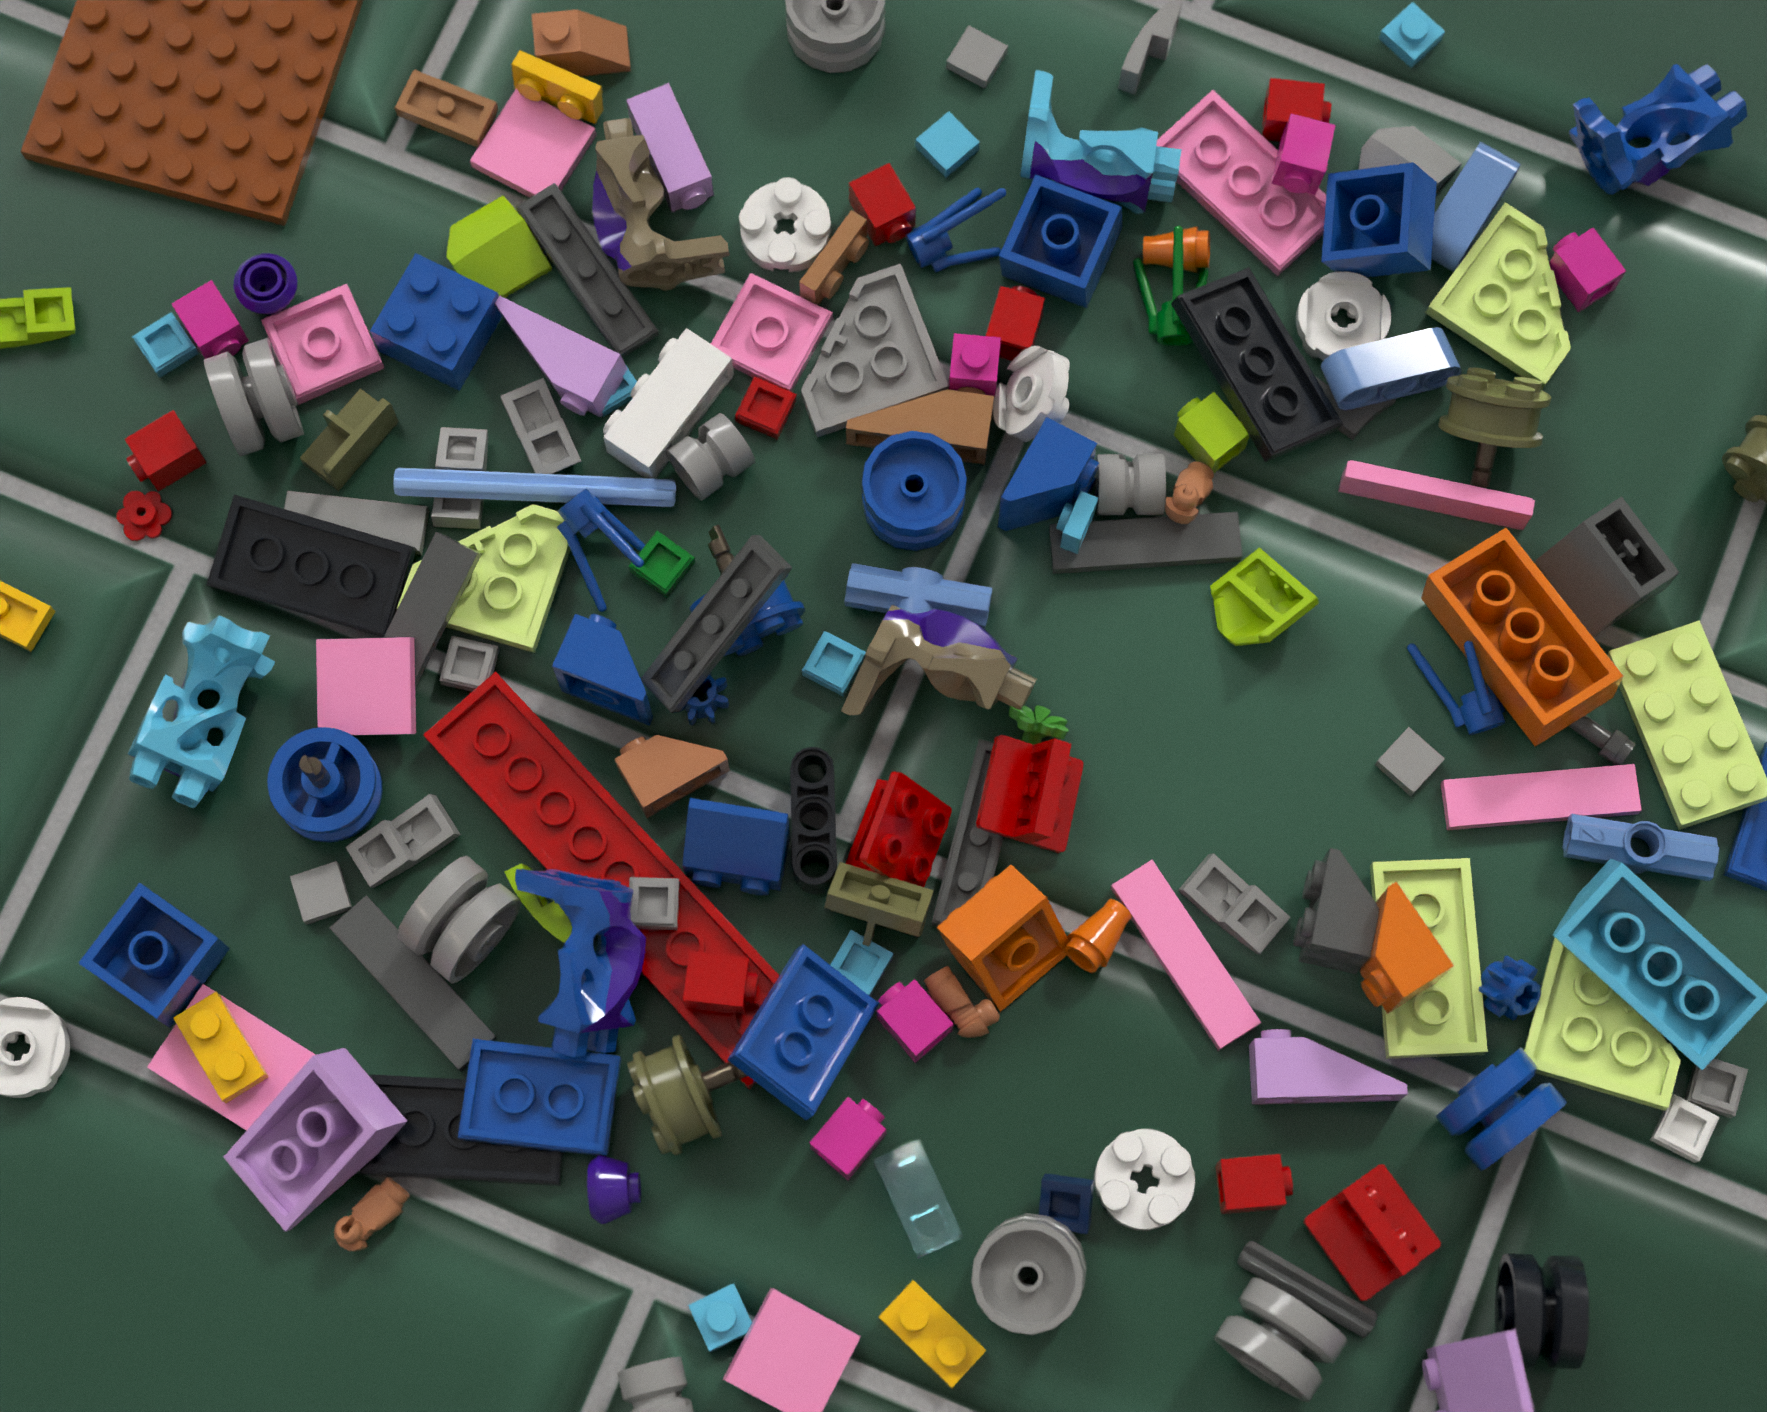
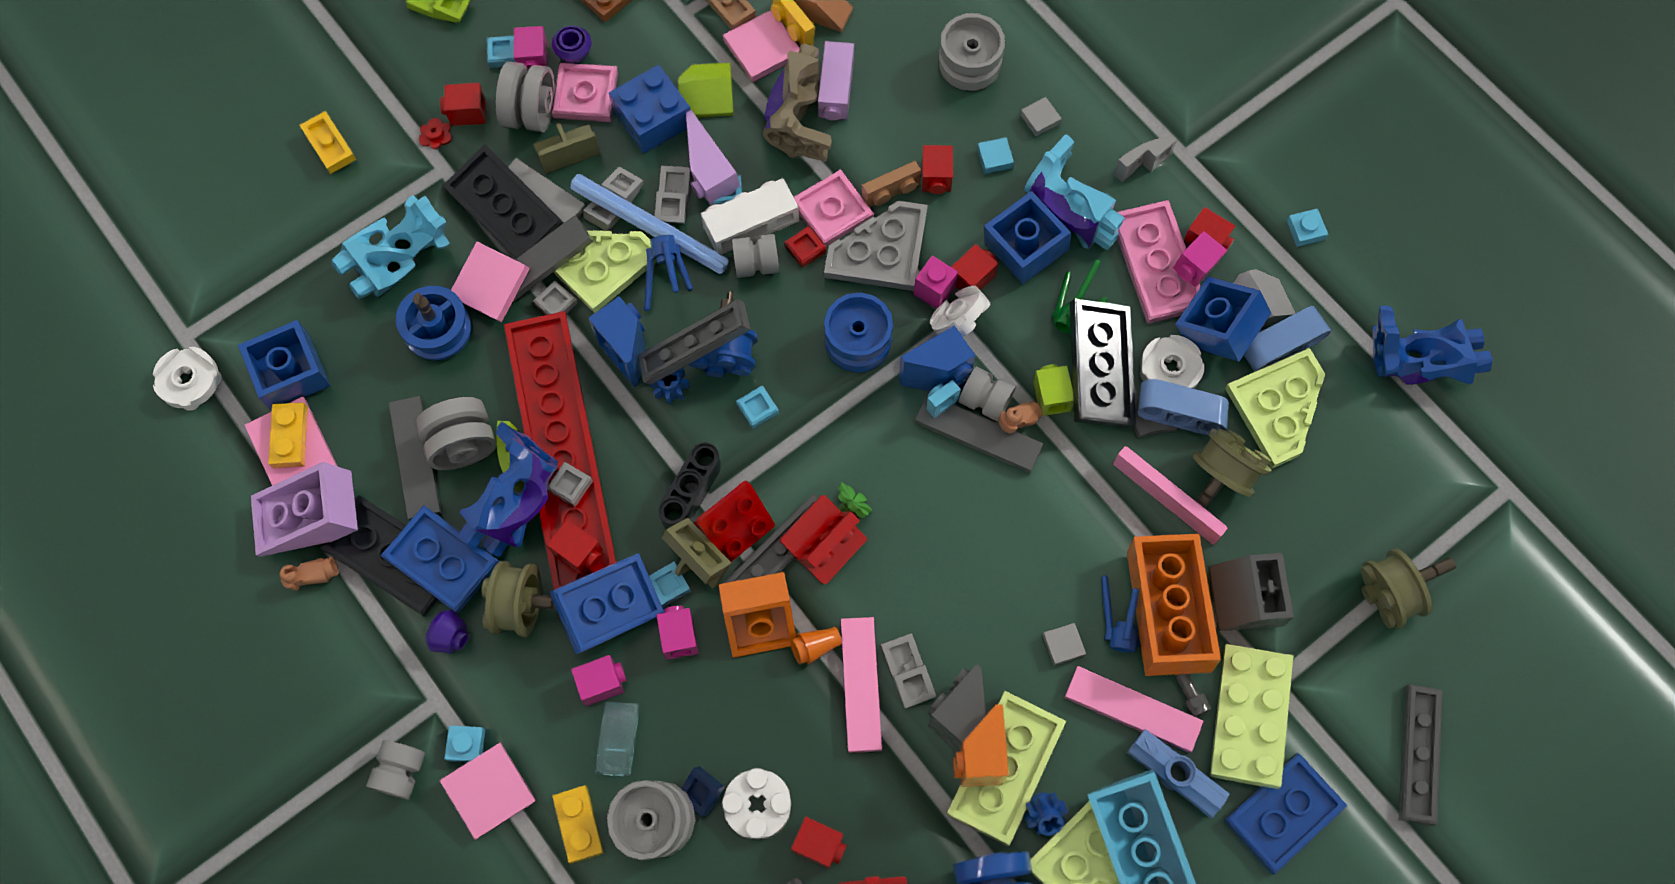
camera: 30 degrees right, 5 degrees down
(321, 892) = (397, 381): light grey tile -> none
(403, 842) = (457, 378): light grey slope -> none
(587, 271) = (750, 124): dark grey tile -> none
(663, 564) = (694, 302): green tile -> none
(667, 770) = (624, 416): nougat slope -> none
(735, 846) = (634, 476): blue slope -> none
(789, 201) = (875, 139): white plate -> none
(916, 592) = (827, 394): medium blue piece -> none
(931, 240) = (953, 203): blue plant -> none
(952, 415) = (908, 306): medium nougat slope -> none
(953, 653) = (822, 434): dark tan hips -> none
(955, 1003) = (708, 636): nougat arm -> none
(1196, 249) = (1103, 282): orange cone -> none
(1258, 600) = (1025, 500): lime slope -> none
(1305, 1072) = (891, 795): lavender slope -> none
(1585, 268) = (1338, 411): dark pink brick -> none

